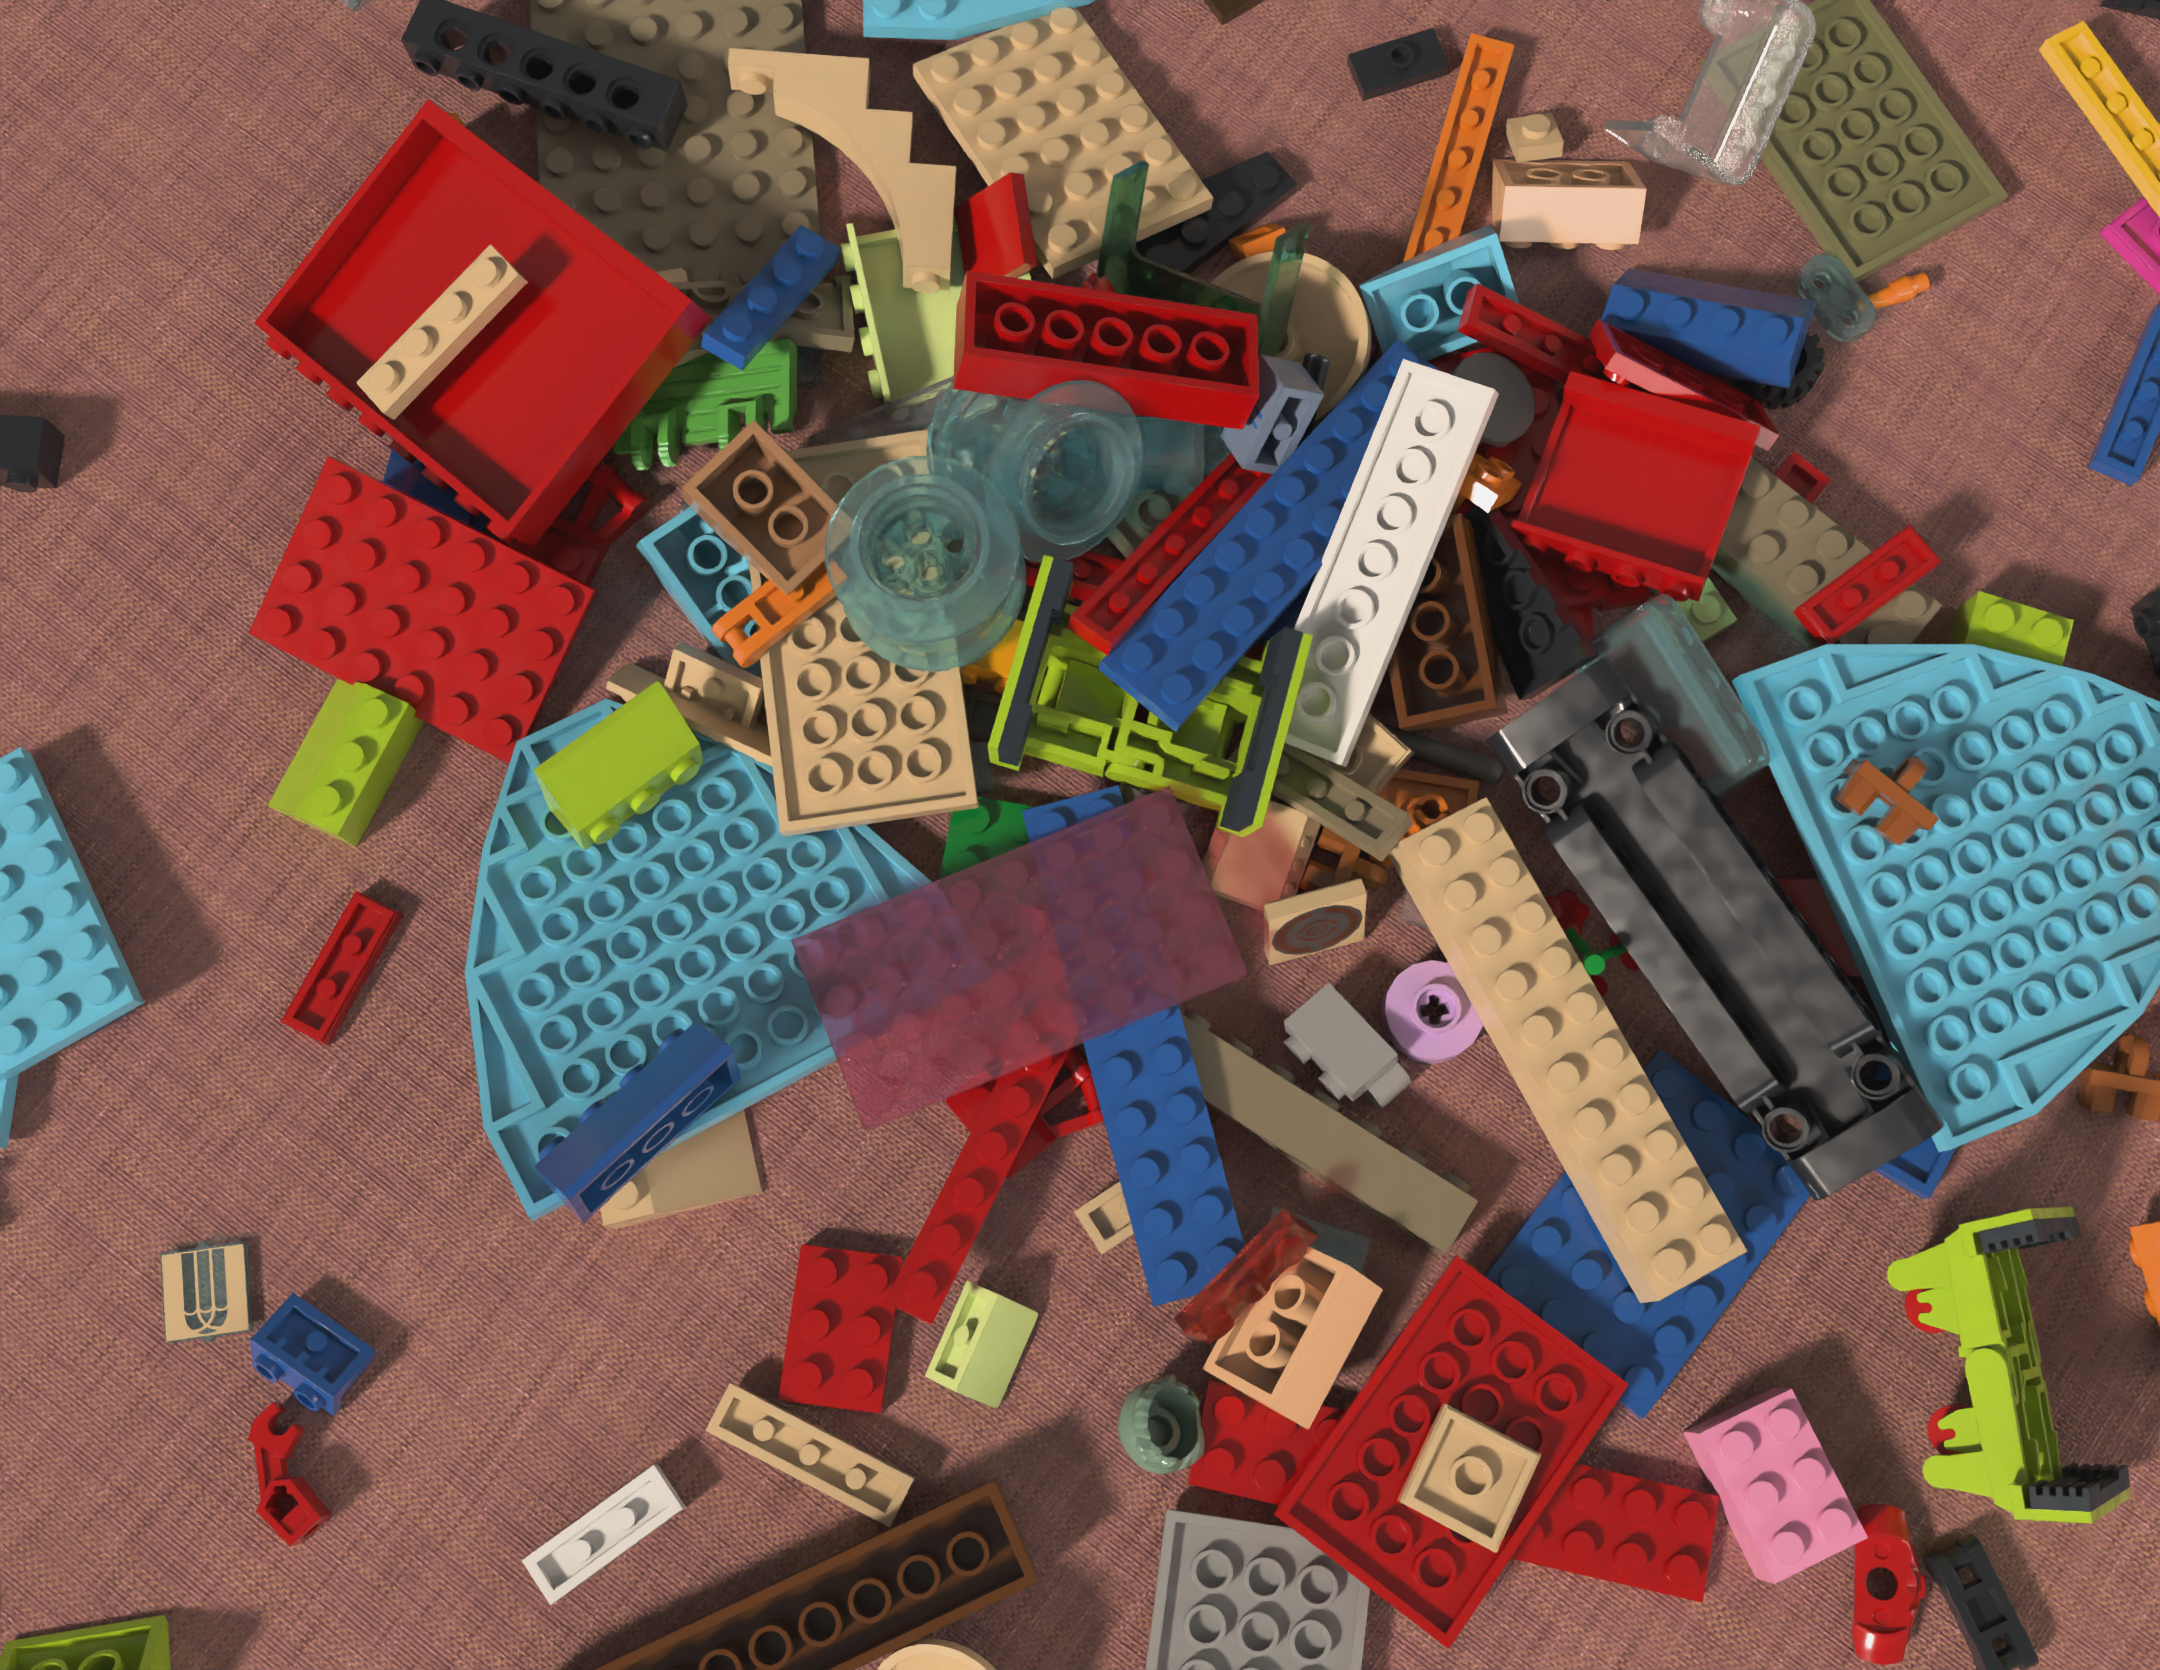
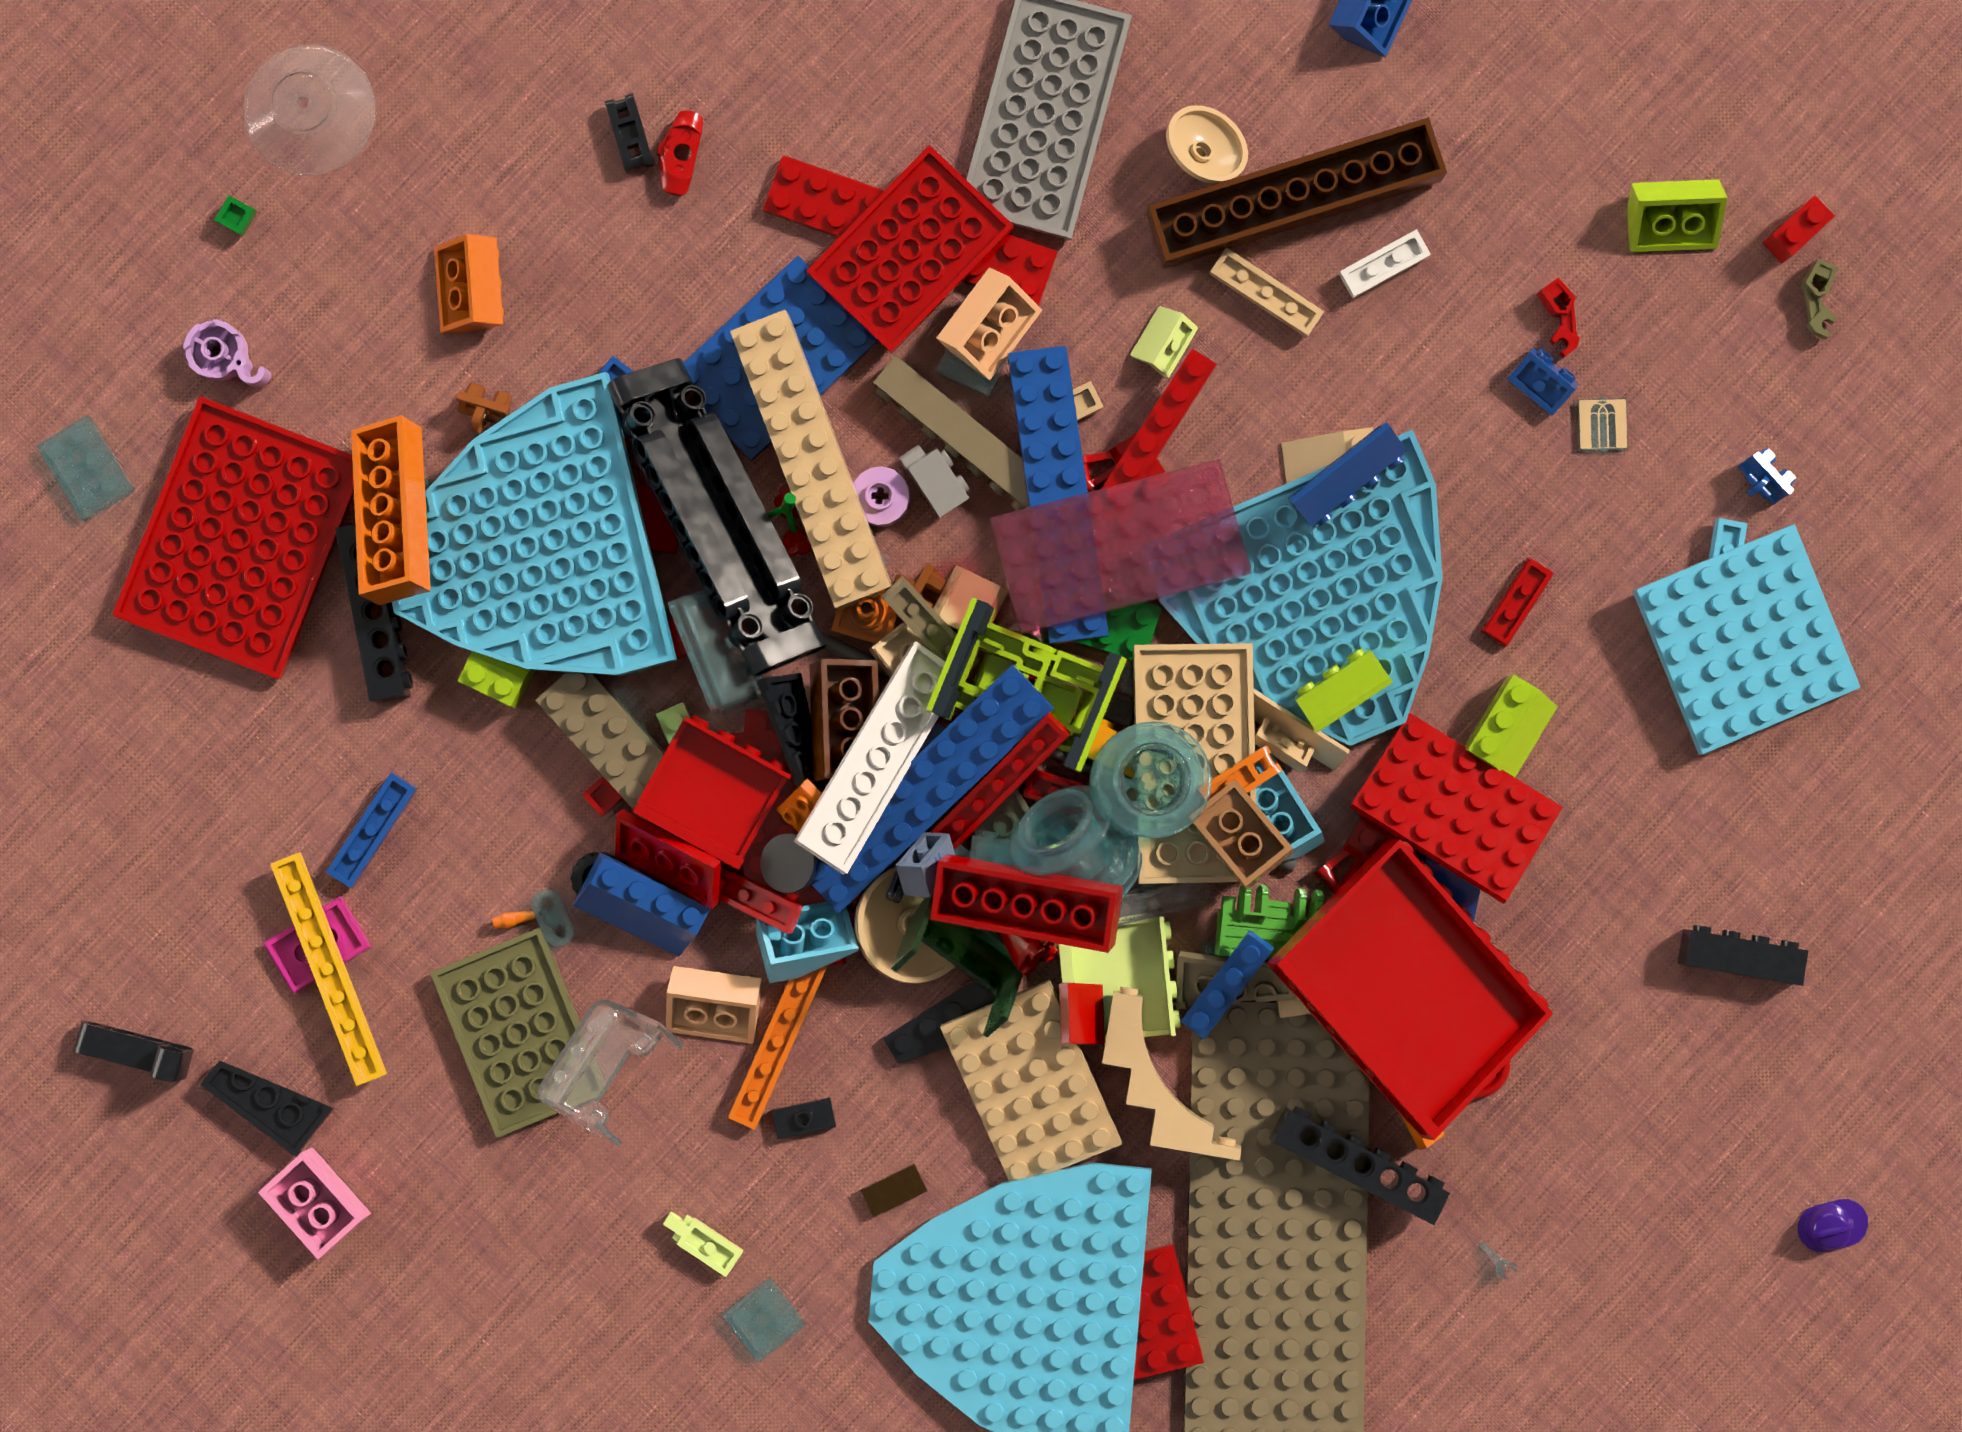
camera: 175 degrees left, 10 degrees up
(441, 332) = (1433, 978): tan plate -> none
(840, 1329) = (1243, 360): red plate -> none
(1161, 1426) = (1069, 281): sand green hair -> none
(1246, 1277) = (1012, 352): clear red plate -> none
(1255, 241) = (913, 998): orange plate -> none
(1314, 921) = (943, 554): tile -> none
(1469, 1477) = (904, 231): tan tile -> none
(1534, 137) = (724, 1052): tan plate -> none
(1775, 1485) = (732, 210): bright pink brick -> none
(1867, 586) = (580, 713): red tile -> none
(1904, 811) = (598, 576): dark orange hips -> none
(2007, 1436) = (600, 224): lime container -> none

